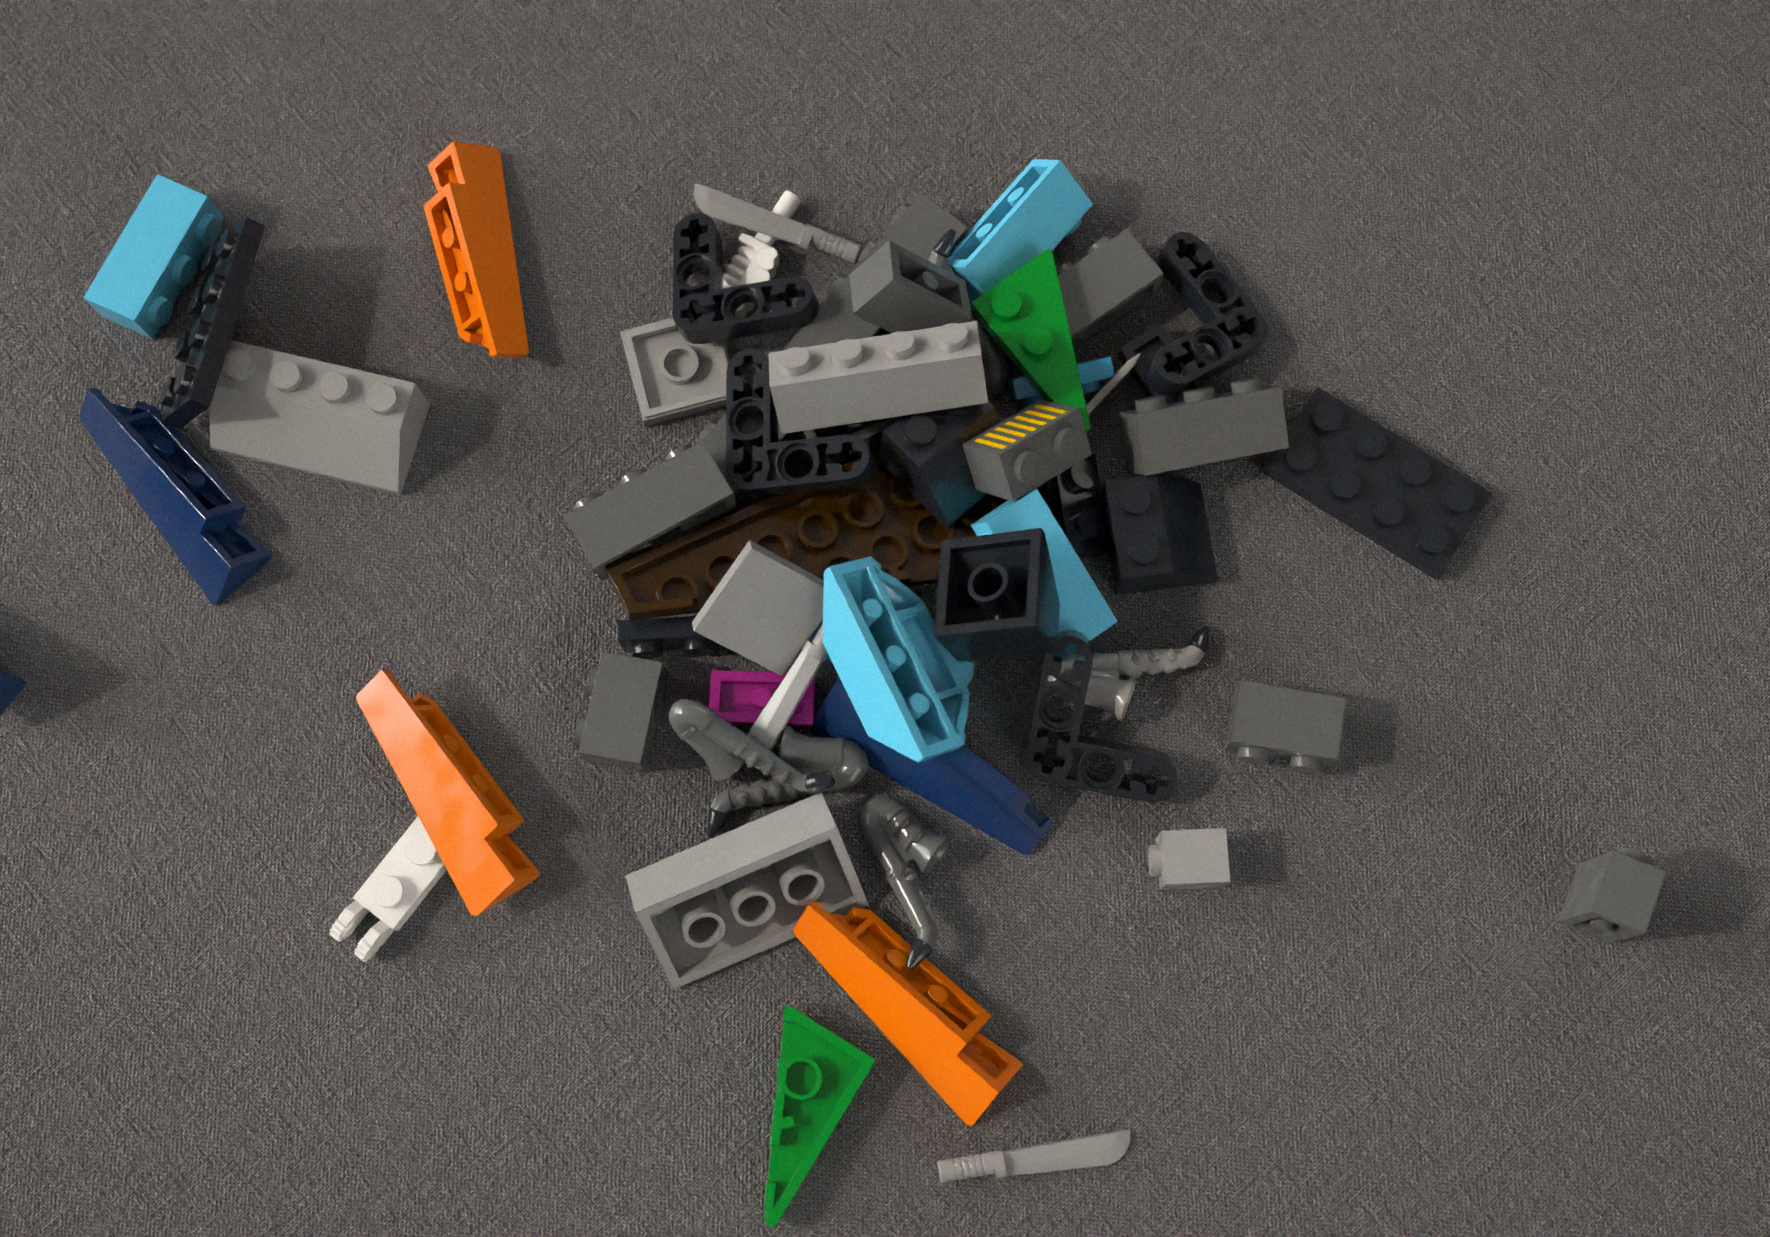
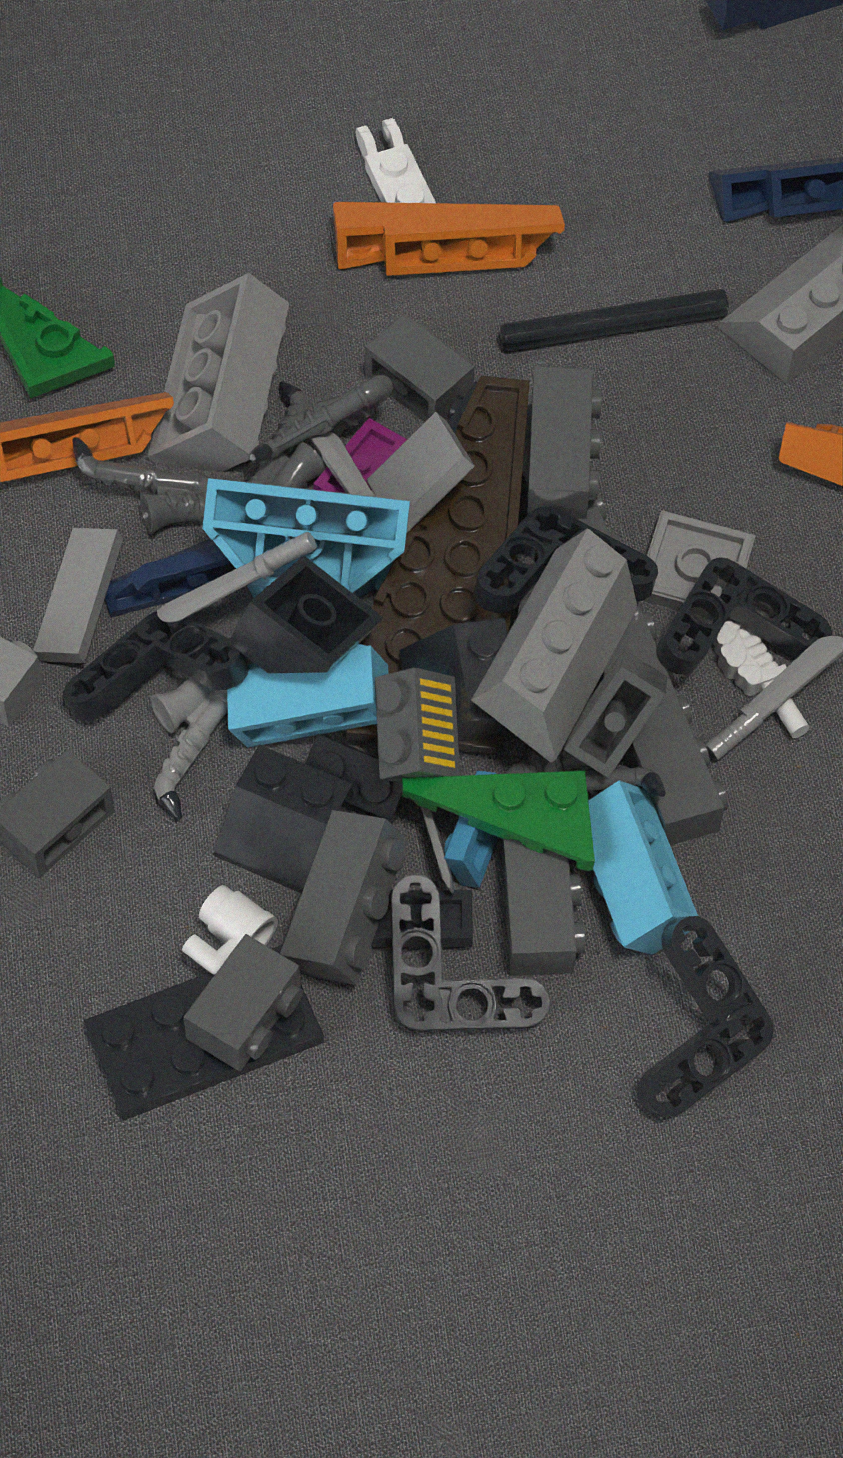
camera: 115 degrees right, 15 degrees down
(453, 582) = (614, 320): none -> black axle
(1000, 718) = (261, 566): none -> light grey piece
(1058, 859) = (78, 595): none -> light grey tile
(1117, 98) = (722, 1015): none -> black beam
(1275, 505) = (229, 919): none -> white piece
(1355, 440) = (244, 1003): none -> dark grey brick

